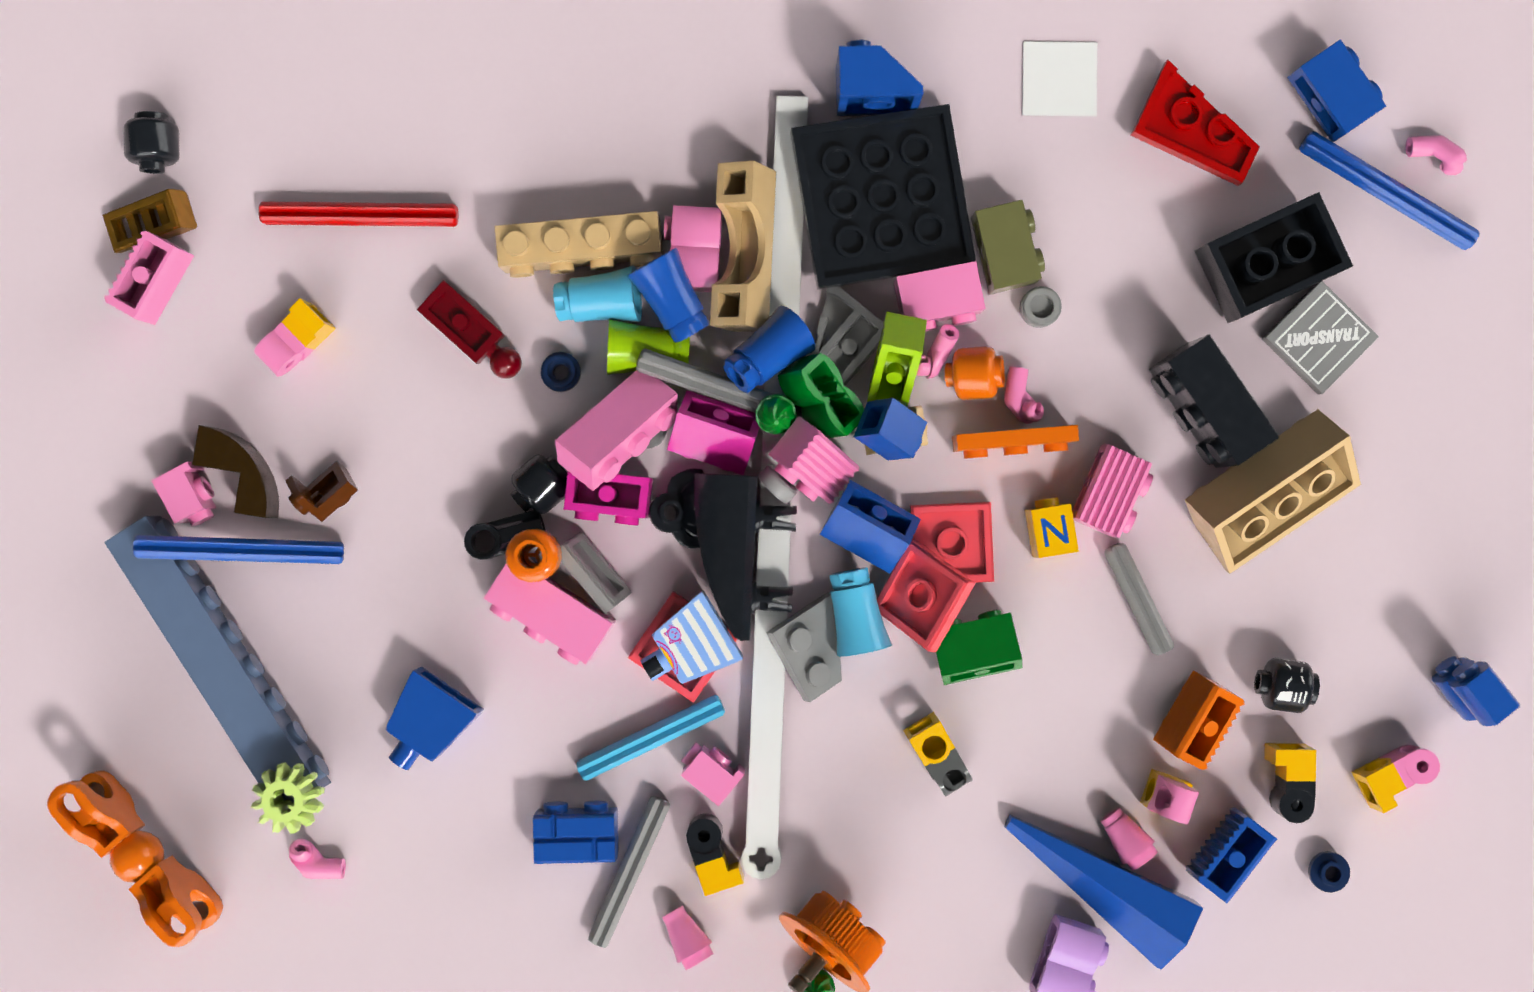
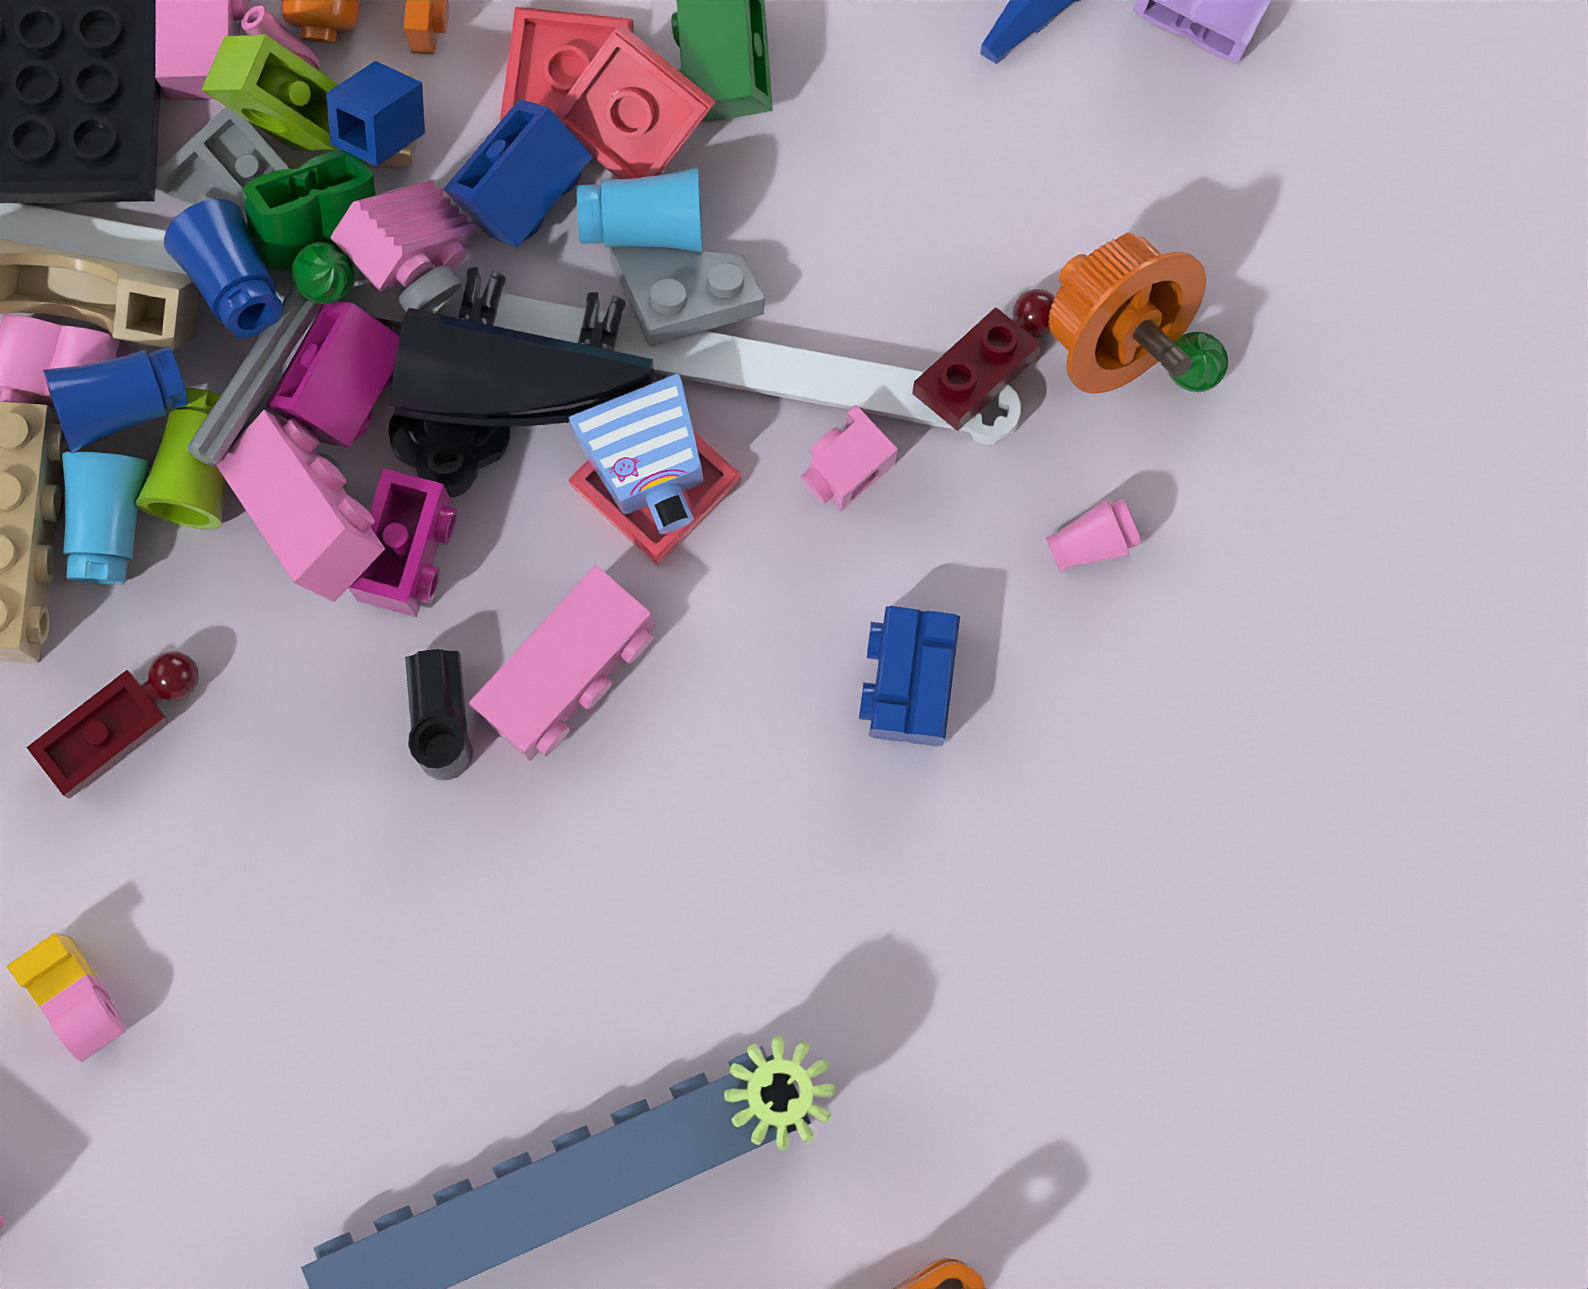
camera: 85 degrees left, 10 degrees down
(186, 494) = (282, 1204): bright pink brick -> none
(226, 451) = (232, 1124): dark brown brick -> none
(238, 549) = (382, 1129): blue axle -> none
(313, 864) = (900, 1098): bright pink arm -> none
(324, 494) = (320, 983): reddish brown bracket -> none
(428, 718) = (700, 874): blue torso -> none
(519, 555) = (454, 642): orange head -> none
(539, 484) = (368, 650): black head -> none
(549, 366) = (192, 584): dark blue plate -> none
(593, 572) = (516, 589): light grey tile -> none
(629, 871) = (983, 610): light grey axle -> none
(650, 737) = (784, 548): medium azure axle -> none
(709, 855) = (974, 484): leg -> none
(793, 854) = (985, 359): none -> dark red plate
(938, 753) = (871, 131): leg -> none

